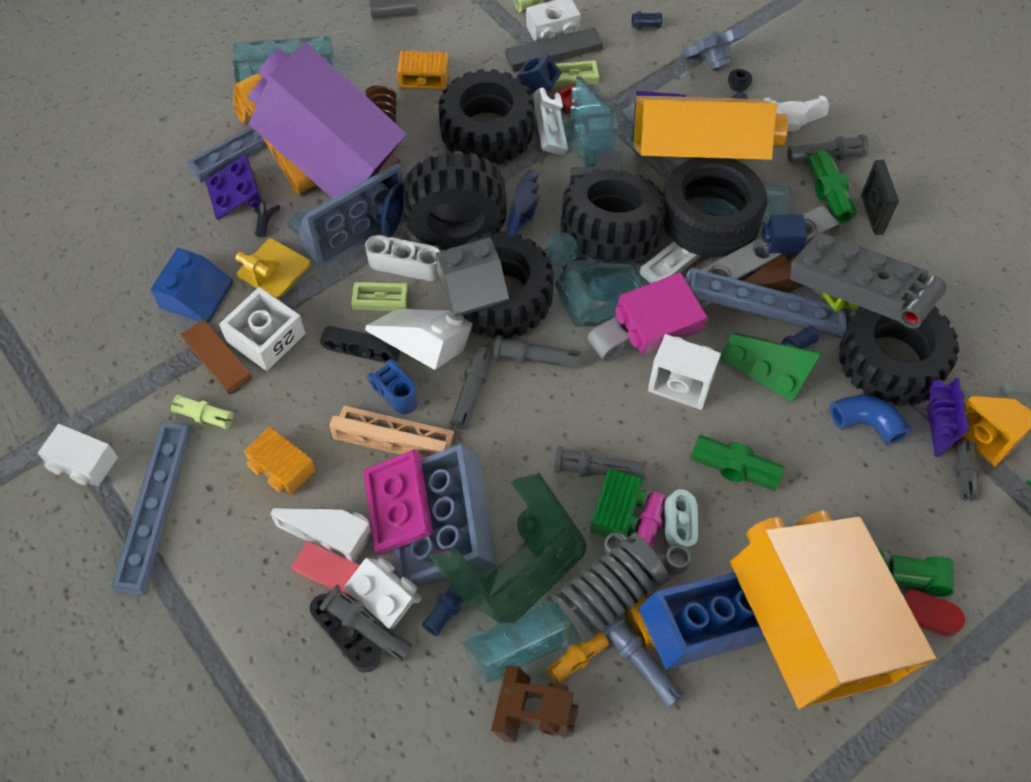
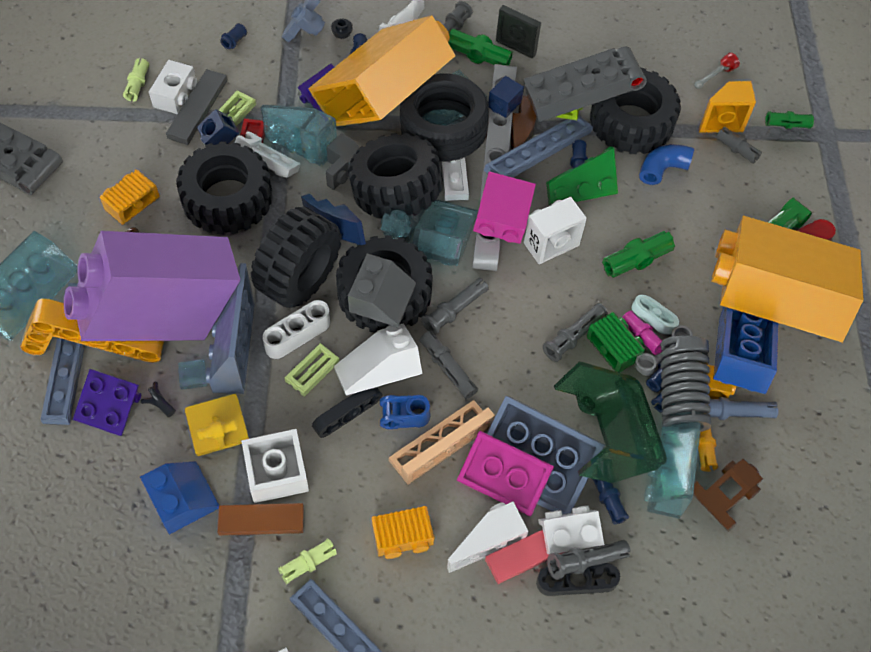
camera: 55 degrees left, 0 degrees up
(391, 210) = (261, 303): dark blue dish -> none
(946, 414) = (702, 124): dark purple hinge -> none

